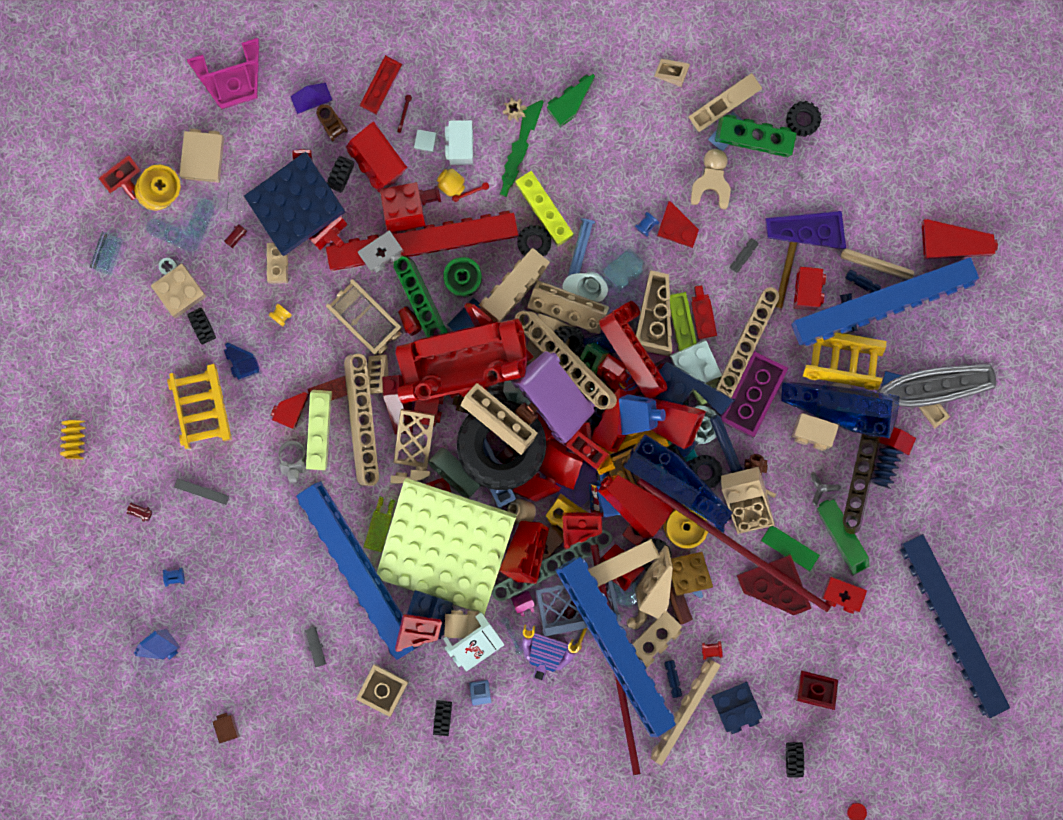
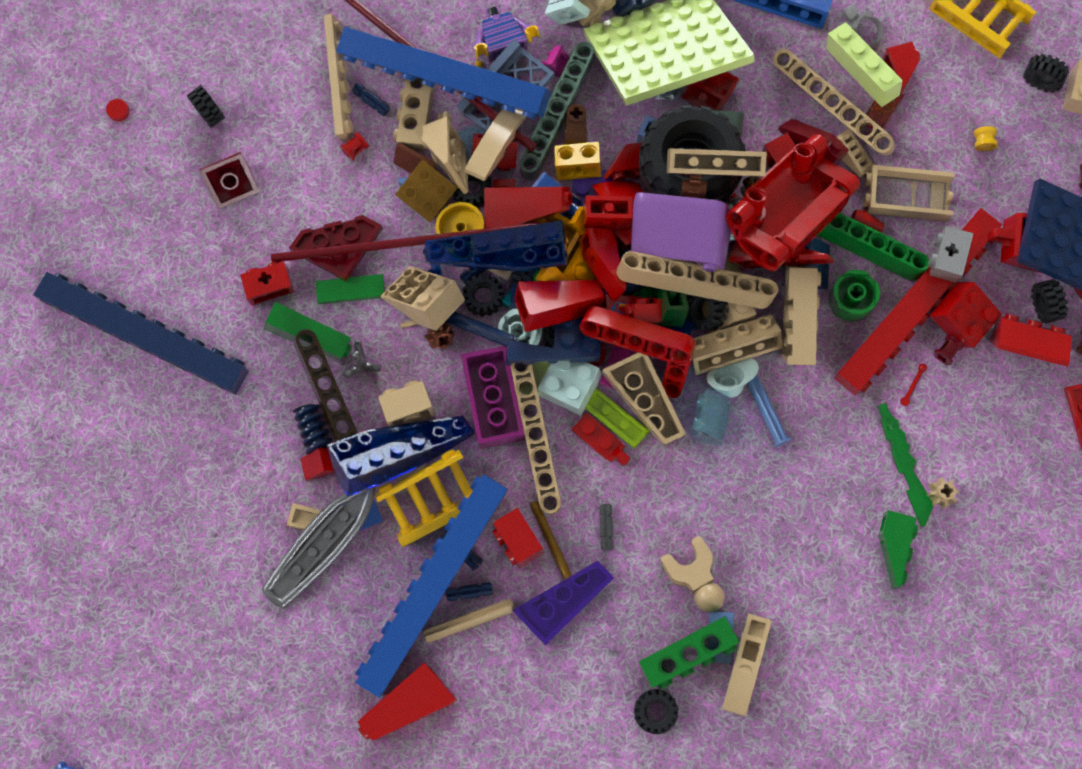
camera: 145 degrees right, 10 degrees down
(243, 362) = (982, 74): clear blue slope -> none
(276, 265) = (1024, 173): tan brick -> none
(379, 527) = (739, 22): clear neon green hinge -> none
(402, 427) = (787, 137): tan window -> none
(408, 98) = (1049, 426): dark red hinge -> none
(418, 474) = (749, 86): tan slope -> none
(425, 140) = (998, 398): light aqua tile -> none
(451, 182) = (940, 376): yellow head -> none
(460, 142) = (967, 417): light aqua brick -> none
(505, 621) = (559, 38): clear light blue hinge -> none
(523, 509) = (622, 132): tan head -> none
(525, 552) = (590, 91): red wedge -> none
(534, 230) = (815, 396): black tyre -> none
(544, 208) = (834, 419): neon yellow brick -> none
(580, 527) = (558, 152): red wing -> none
(639, 414) = (587, 282): blue torso -> none
(646, 224) = (724, 482): blue bush -> none
(672, 71) = (823, 655): tan slope -> none
(677, 227) = (692, 504): red wing -> none
(737, 708) = (293, 116): dark blue plate -> none

